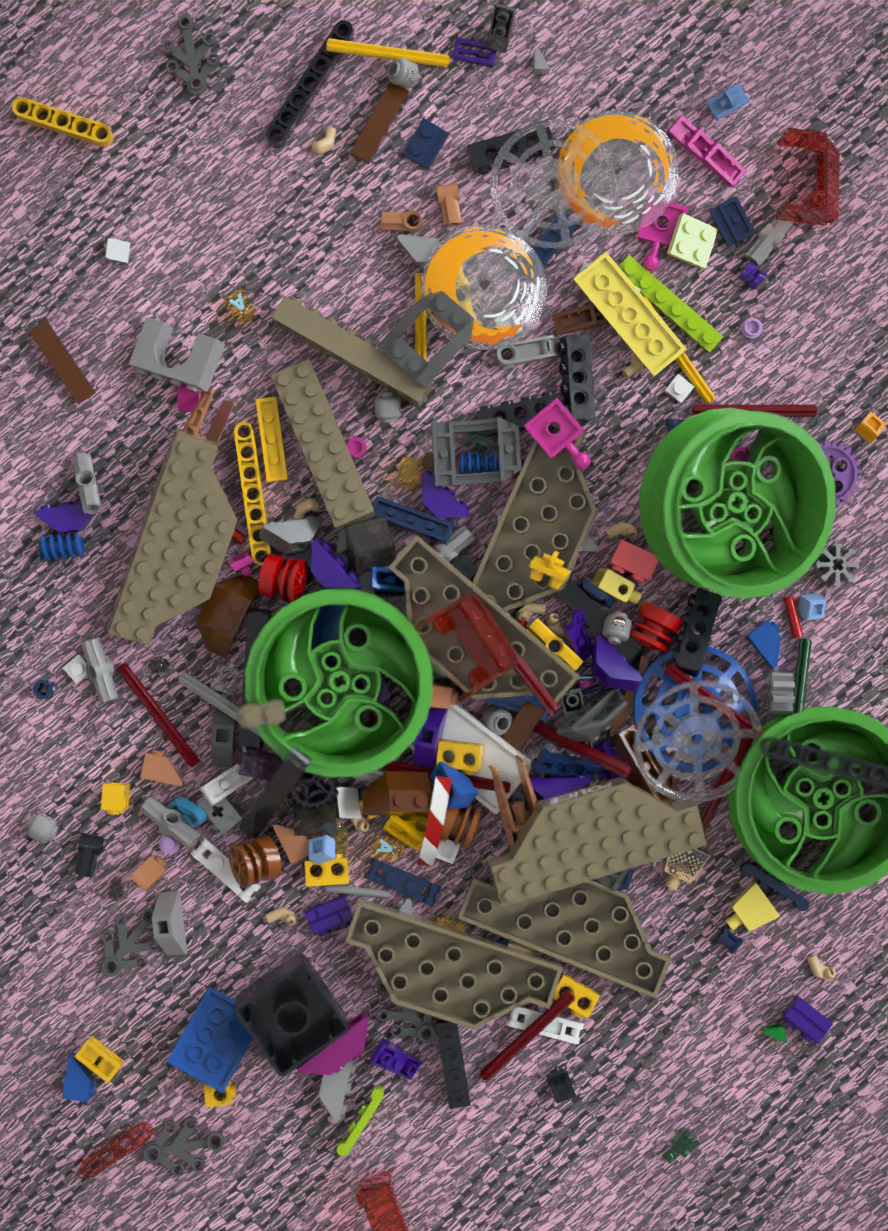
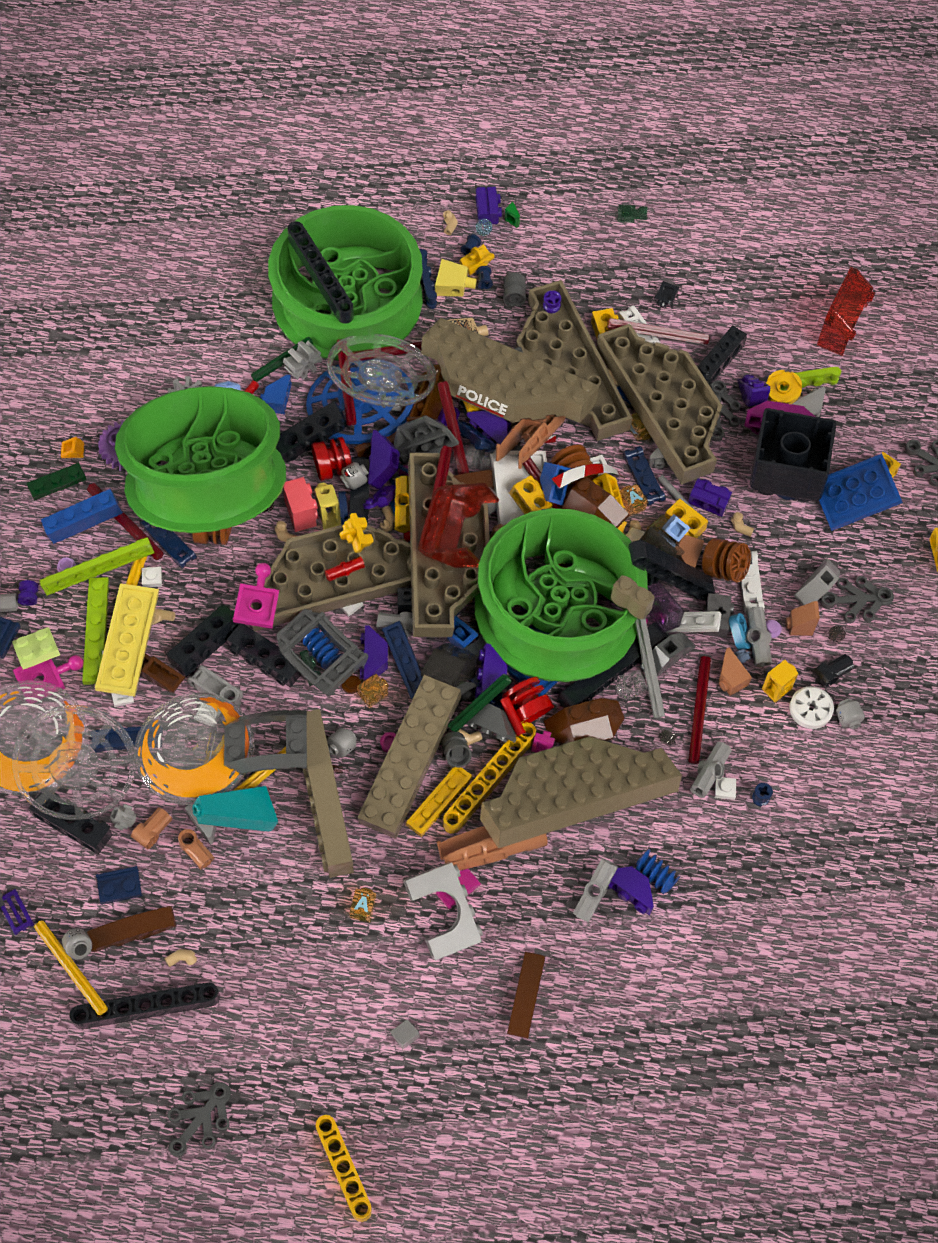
camera: 135 degrees left, 25 degrees down
(71, 816) = (800, 706): none -> white wheel
(167, 792) = (742, 655): none -> sand blue plate
(278, 550) = (512, 716): none -> red piece
(297, 486) = (456, 749): none -> dark grey wheel
(312, 534) = (479, 703): none -> dark green axle
(356, 1088) = (788, 379): none -> yellow plate
(399, 278) = (237, 809): none -> teal slope
(477, 189) = (123, 817): none -> light grey gear
(526, 532) = (344, 569): none -> red pin
(639, 965) = (555, 298): none -> dark purple wheel
(691, 954) = (514, 289): none -> dark grey wheel
(723, 356) = (96, 566): none -> lime plate
(753, 950) = (477, 258): none -> yellow hips
(775, 961) = (472, 241): none -> dark blue bush
(781, 994) = (487, 227): none -> clear light blue plate
(786, 373) = (81, 516): none -> blue brick
(847, 387) = (56, 481): none -> dark green plate

